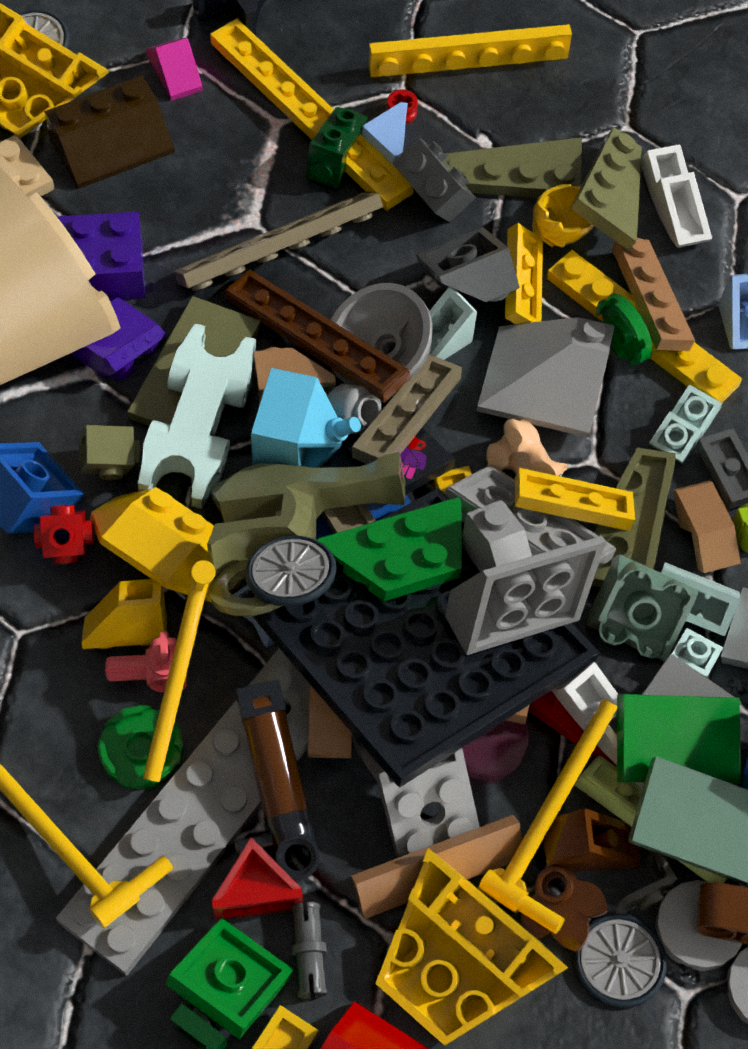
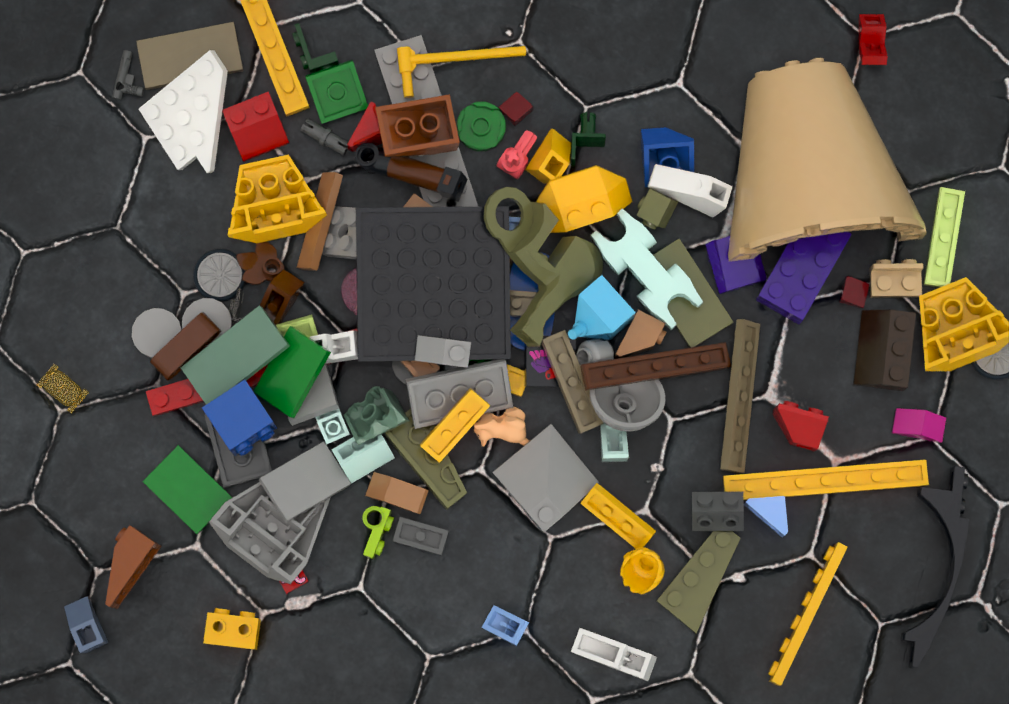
camera: 130 degrees right, 20 degrees up
(52, 422) = (691, 189): none -> white slope
(61, 597) = (587, 137): none -> dark green bracket
(64, 201) = (854, 292): none -> dark red slope
(73, 521) = (620, 156): red brick -> none
(82, 715) = (516, 108): none -> dark red slope
(202, 574) = (525, 185): yellow bar -> none
(208, 796) = (418, 127): none -> dark orange slope
(265, 155) = (800, 426): none -> red slope
(290, 570) = (498, 230): light grey wheel -> none
(331, 145) = (786, 475): dark green bracket -> none
(403, 550) = (480, 305): green wing -> none
(406, 97) = (789, 536): red bush -> none
(473, 265) = (639, 480): dark grey slope -> none
(506, 885) = (290, 246): yellow bar -> none
(523, 596) = (409, 321): light grey slope -> none
(612, 189) = (641, 613): olive wing -> none
(630, 332) = (539, 538): green tile -> none
(654, 296) = (555, 580): medium nougat plate -> none
(686, 423) = (464, 535): light aqua slope -> none
(693, 367) = (542, 563): yellow plate -> none

